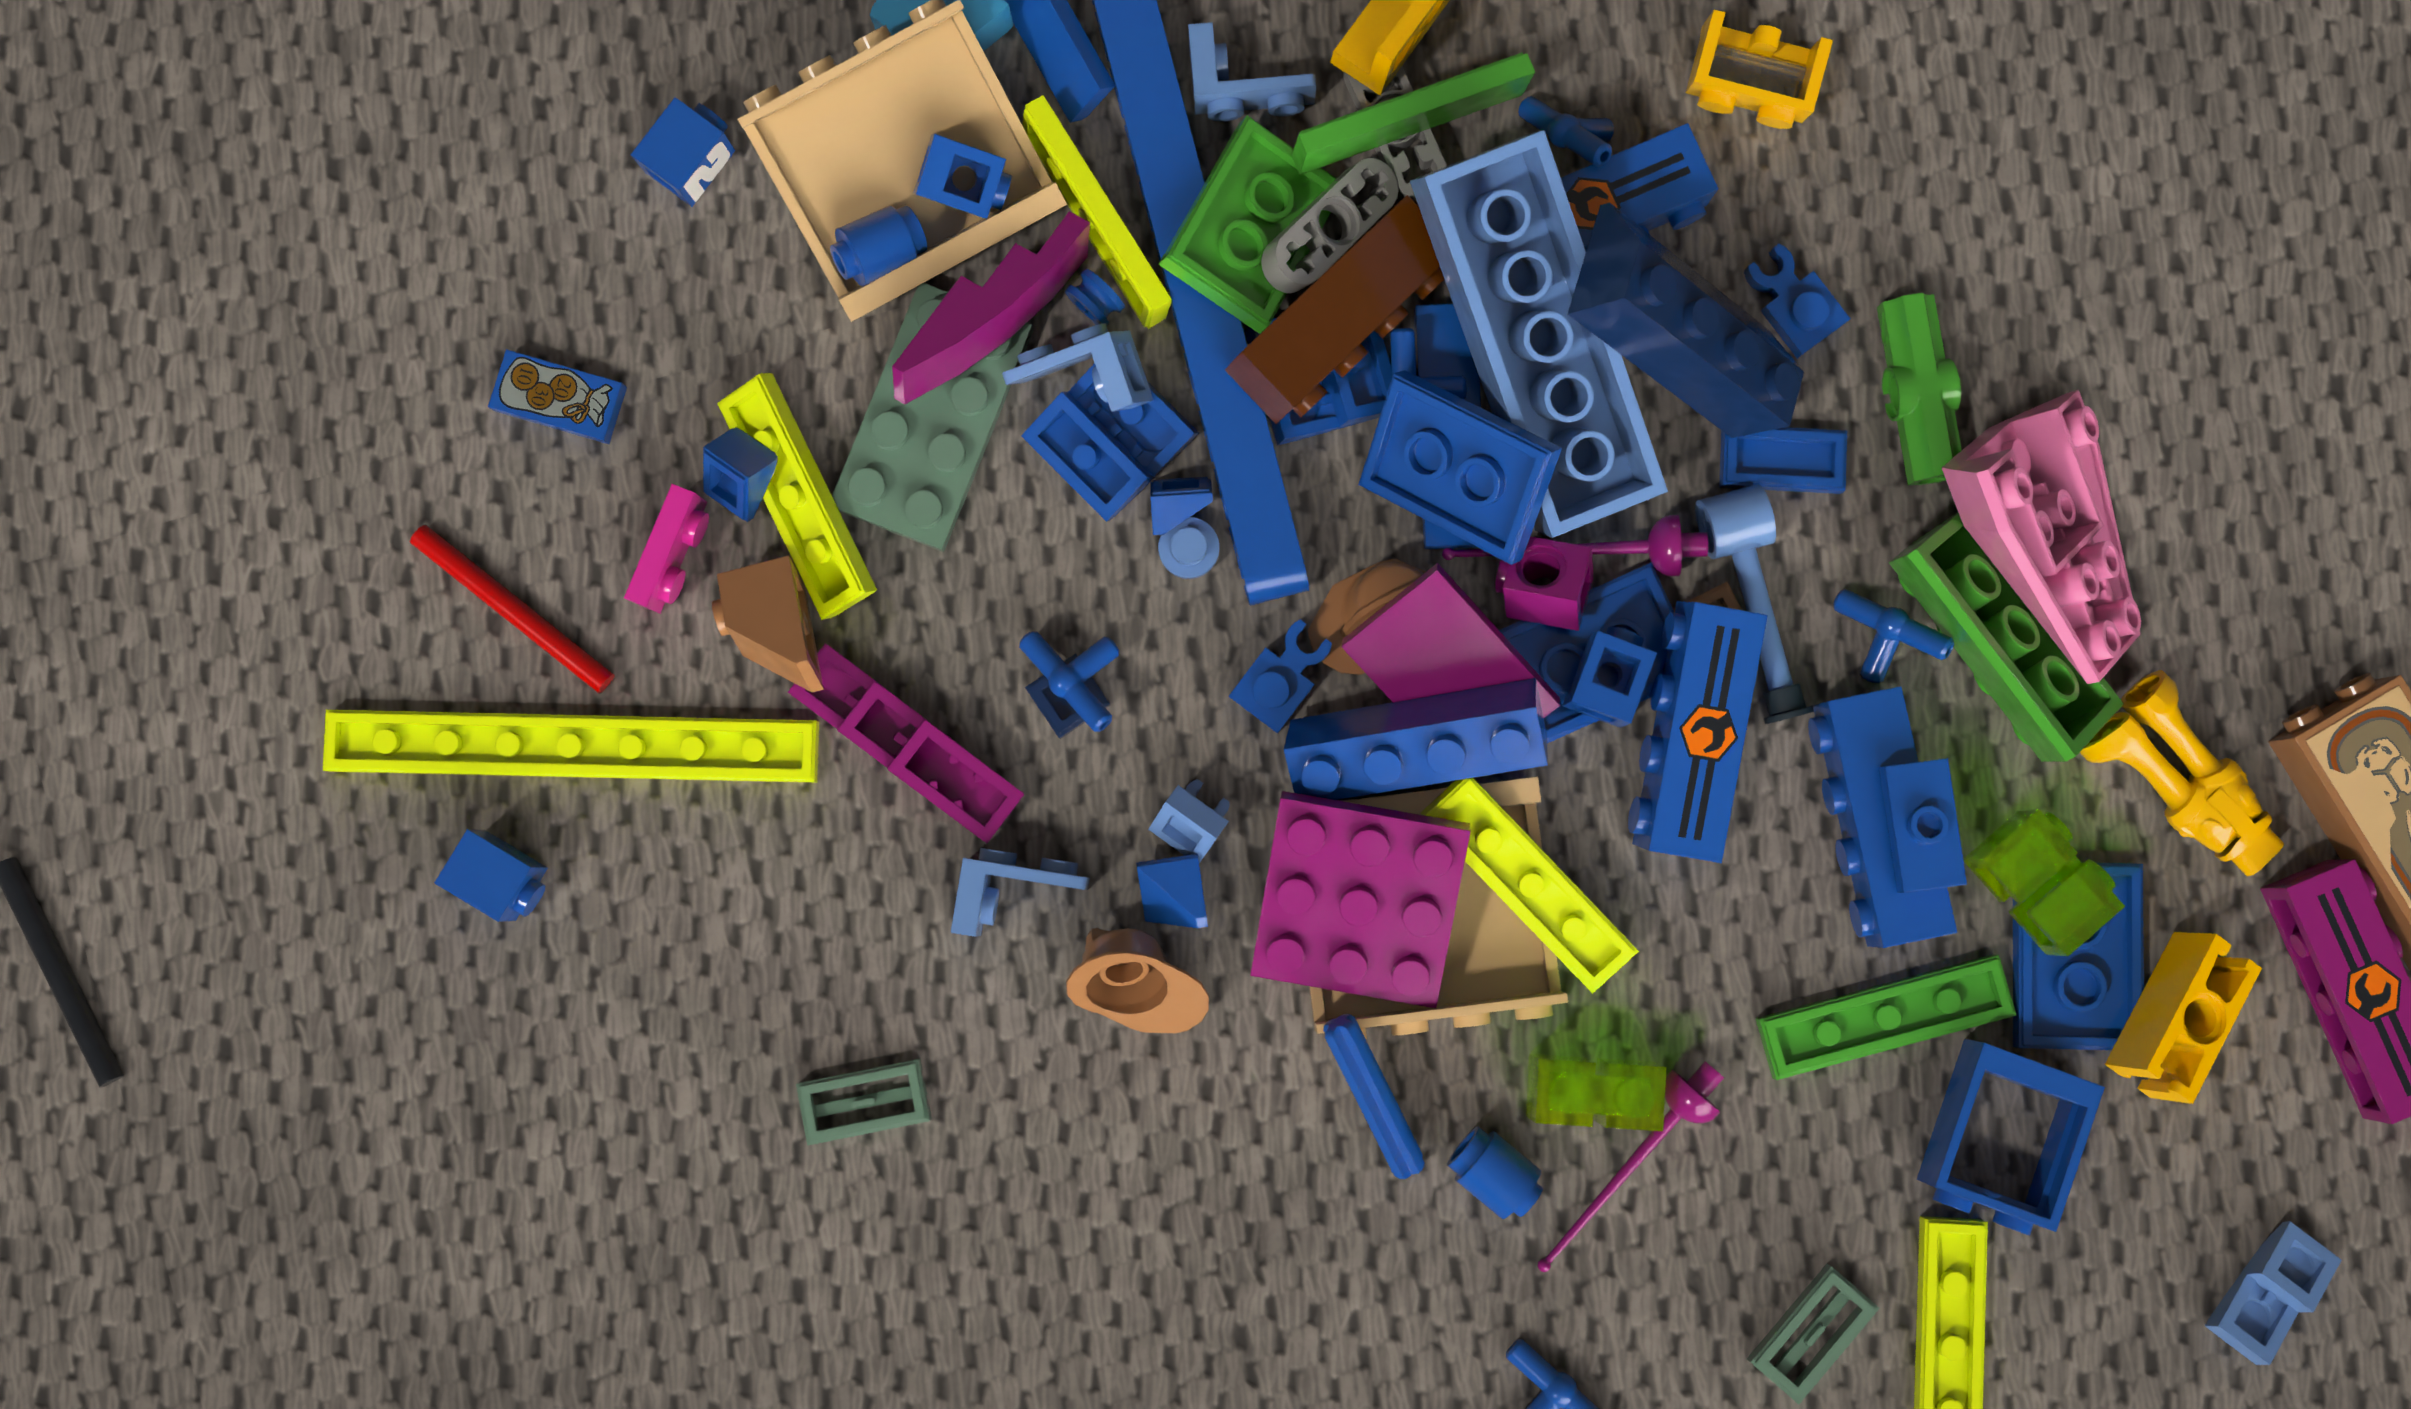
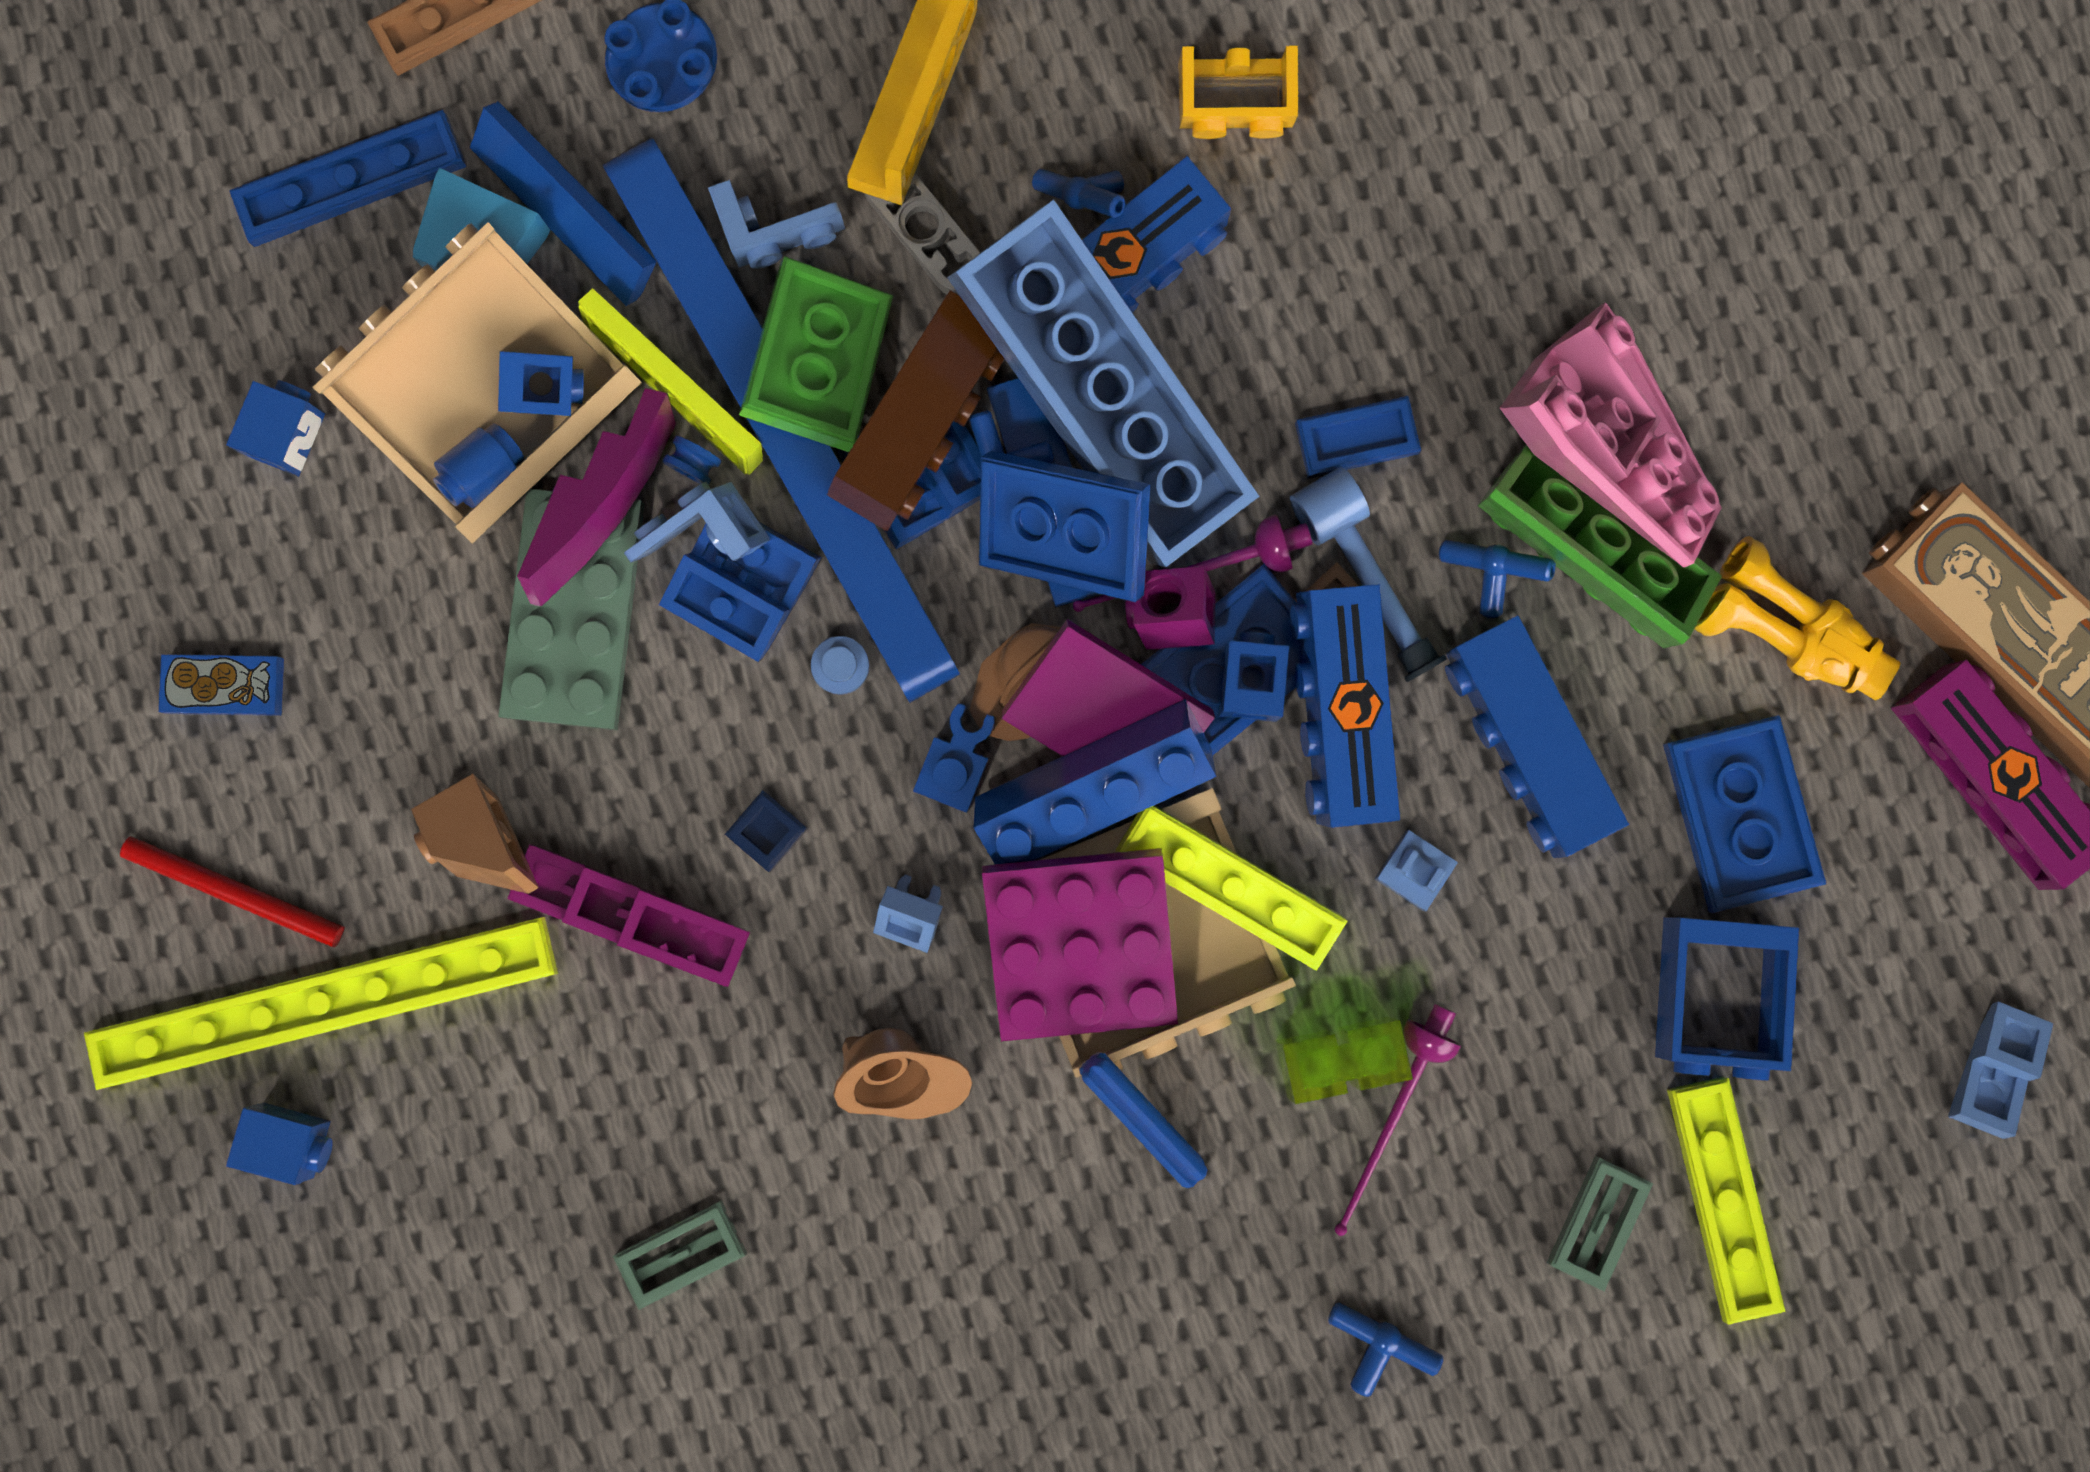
camera: 20 degrees left, 0 degrees up
(677, 527) = (357, 819): dark pink plate -> none
(737, 472) = (406, 709): blue slope -> none
(801, 499) = (467, 716): neon yellow tile -> none
(978, 902) = (735, 1043): medium blue bracket -> none
(1068, 679) = (762, 817): blue piece -> none
(1173, 891) = (910, 983): blue slope -> none
(1177, 500) = (816, 625): blue slope -> none
(1307, 230) = (867, 346): light grey beam -> none
(1412, 112) = (934, 214): bright green tile -> none
(1496, 1173) = (1274, 1158): blue brick -> none
(1682, 330) = (1231, 345): dark blue slope -> none
(1722, 919) = (1416, 870): none -> medium blue tile
(1801, 310) = (1336, 297): blue plate -> none
(1885, 1017) = (1587, 917): bright green tile -> none
(1920, 386) = (1462, 337): bright green piece -> none
(1922, 825) = (1571, 737): blue plate -> none
(2055, 892) = (1709, 765): clear neon green piece -> none
(2183, 1016) = (1852, 844): yellow piece -> none

